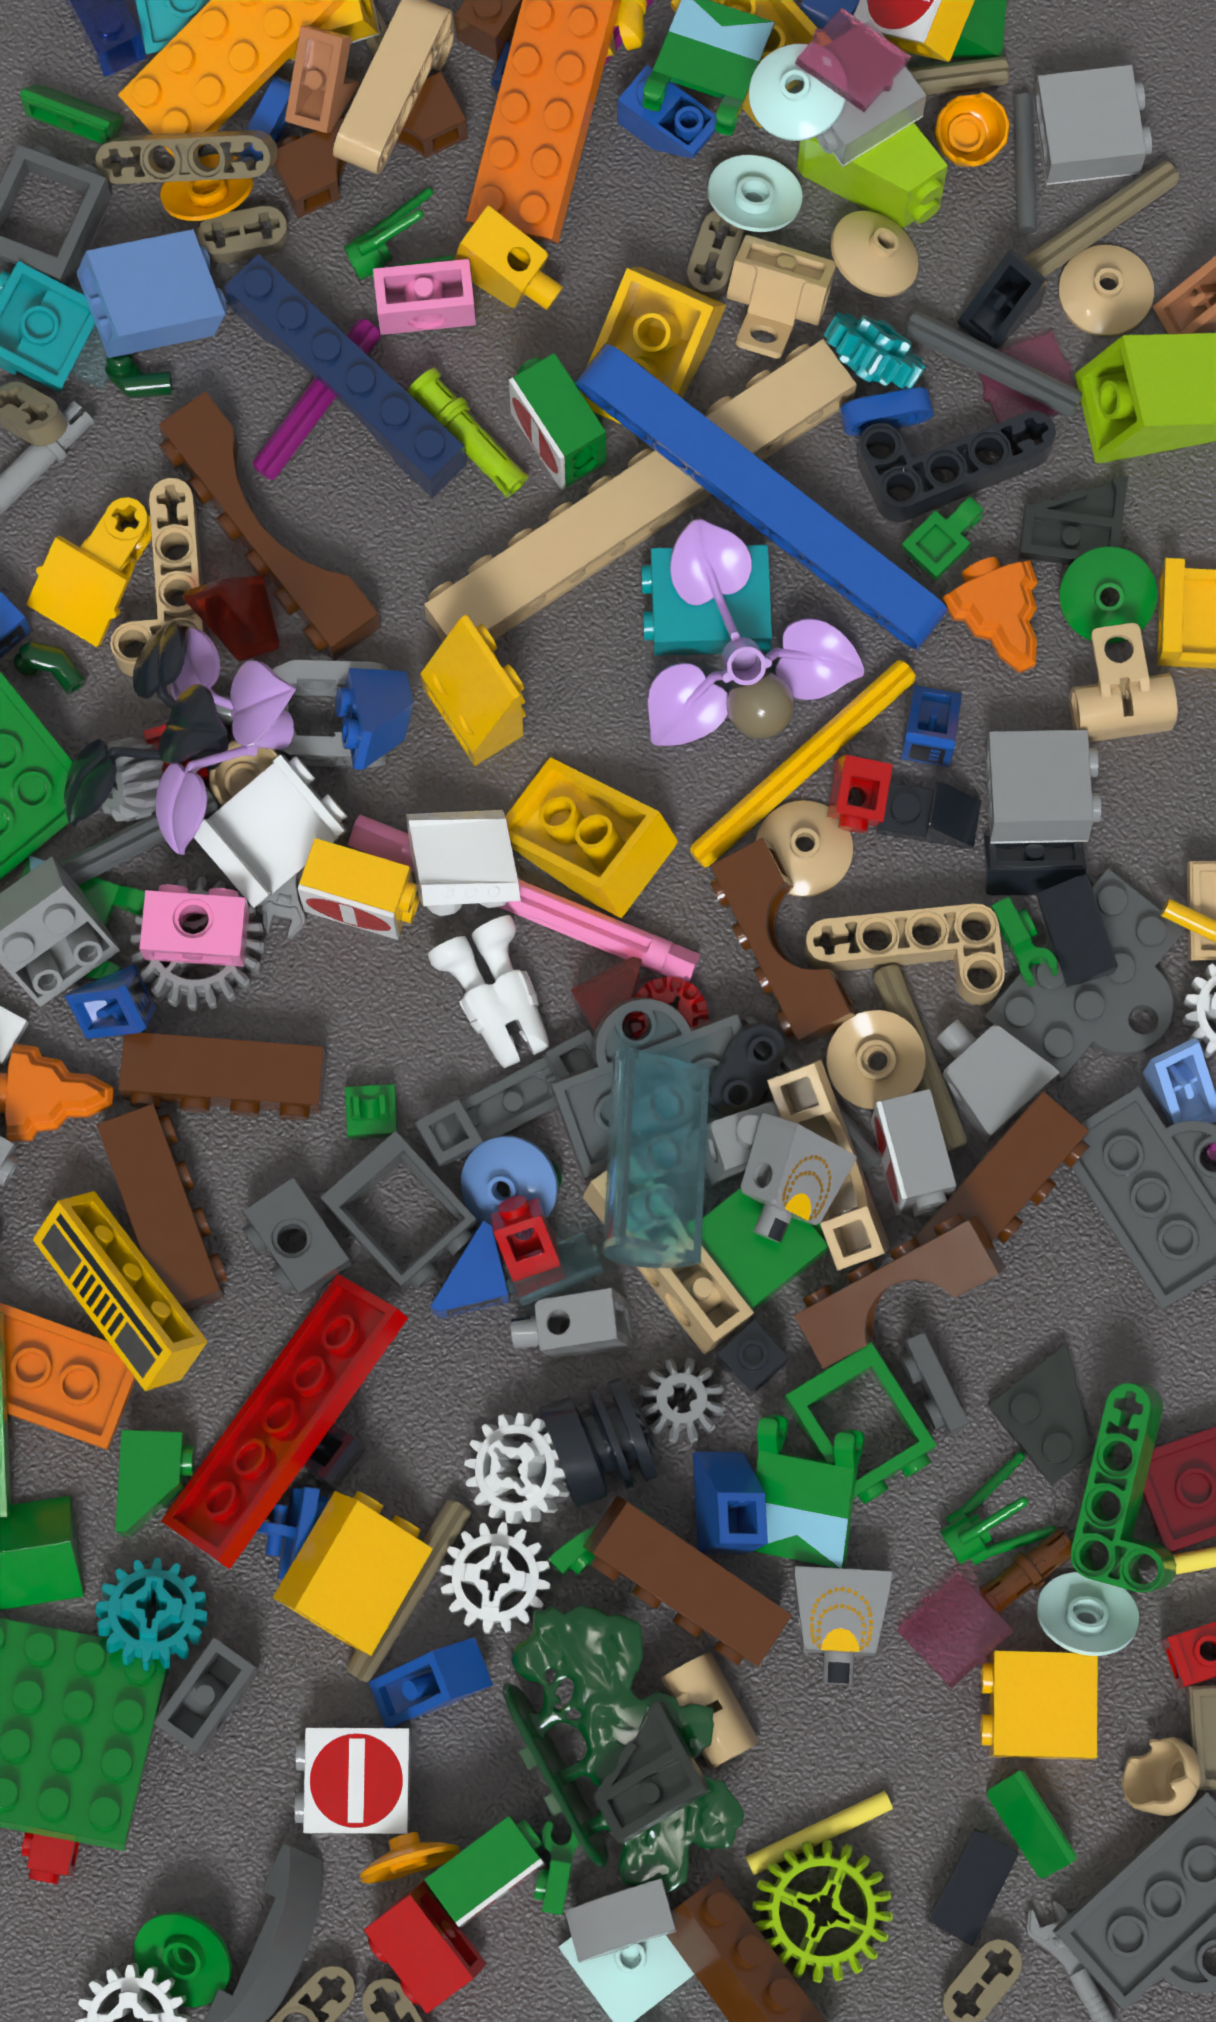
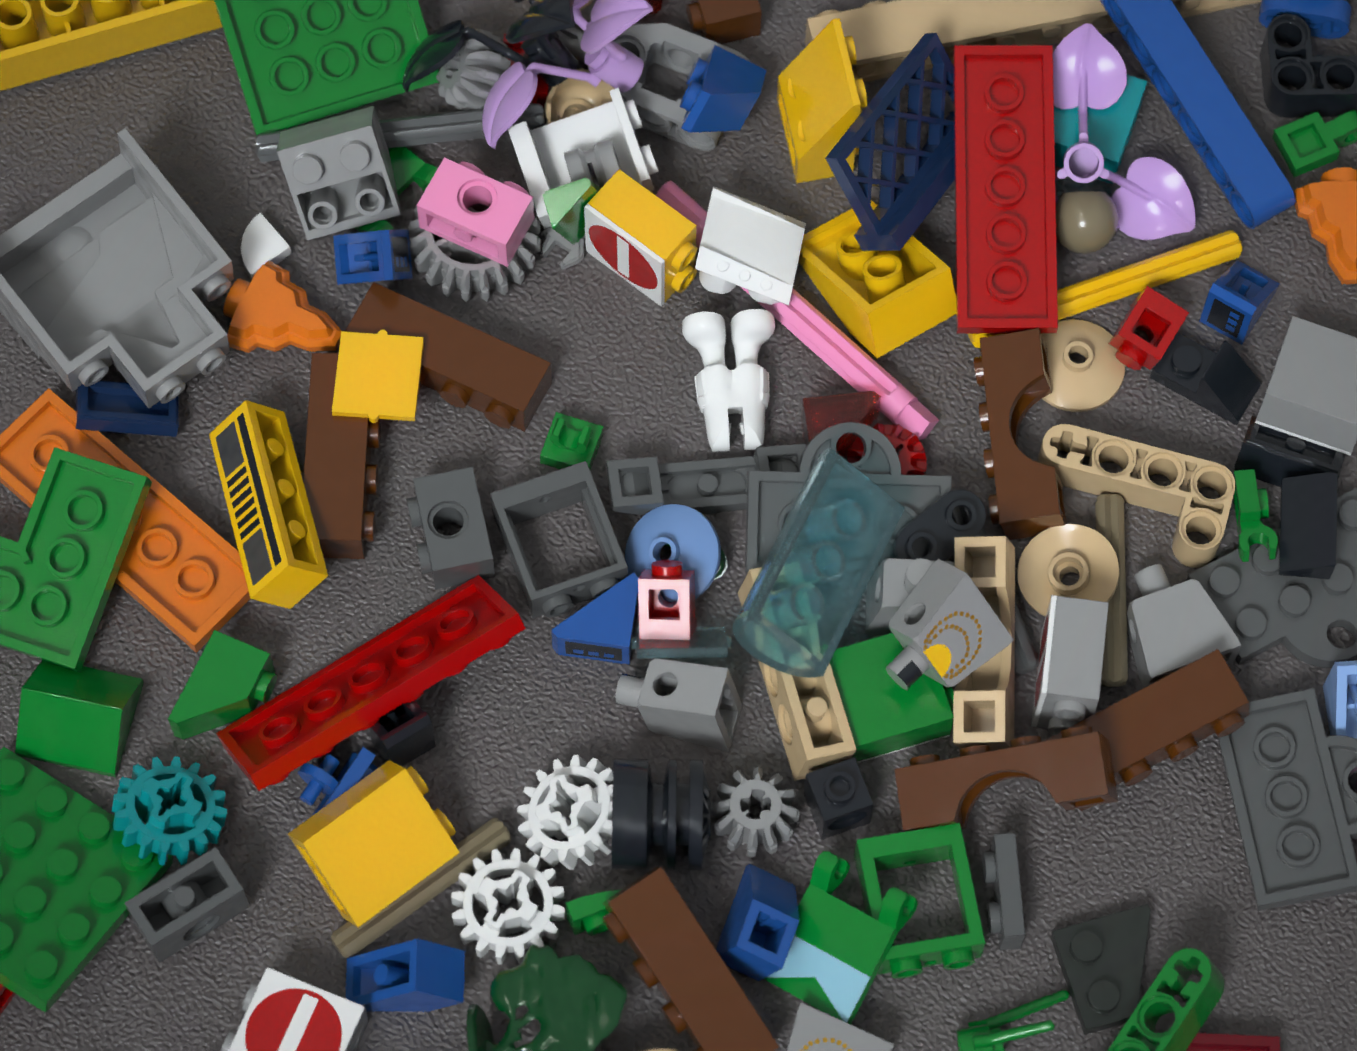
camera: 20 degrees right, 10 degrees down
(168, 1124) = (378, 376): none -> yellow piece
(281, 894) = (566, 207): none -> slope
(294, 829) = (602, 158): none -> light grey wheel
(597, 708) = (926, 171): none -> dark blue fence
(678, 710) = (1005, 189): none -> red plate

